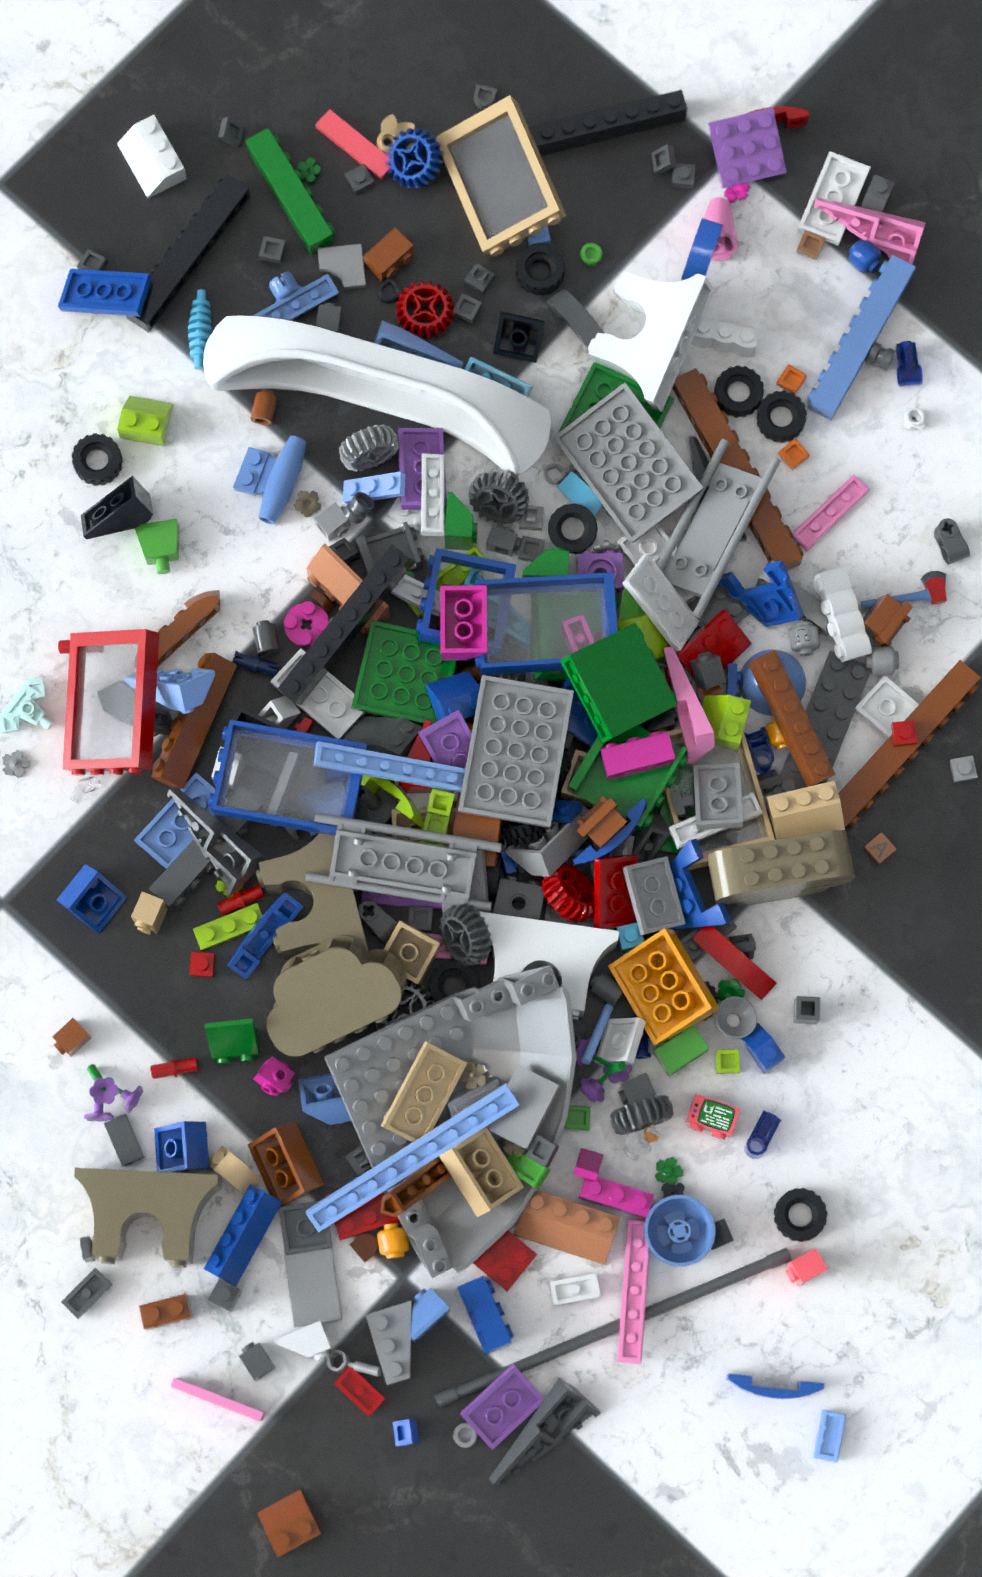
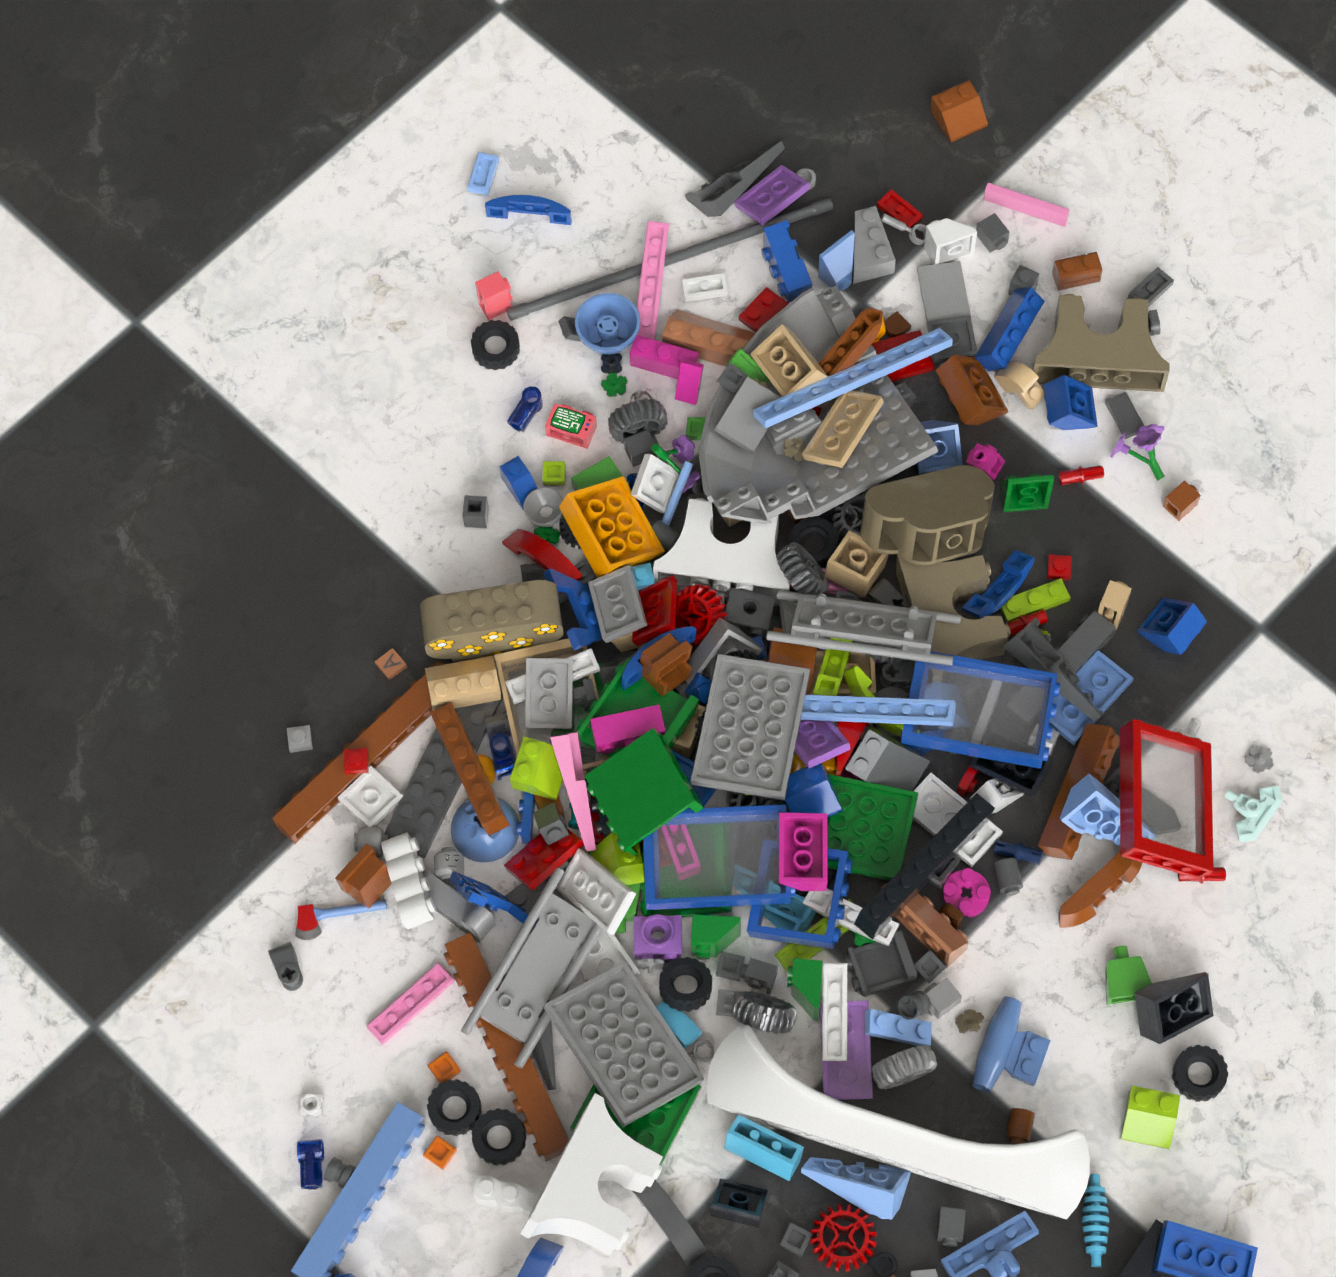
camera: 175 degrees left, 10 degrees down
(405, 1432) = (858, 178): plate -> none

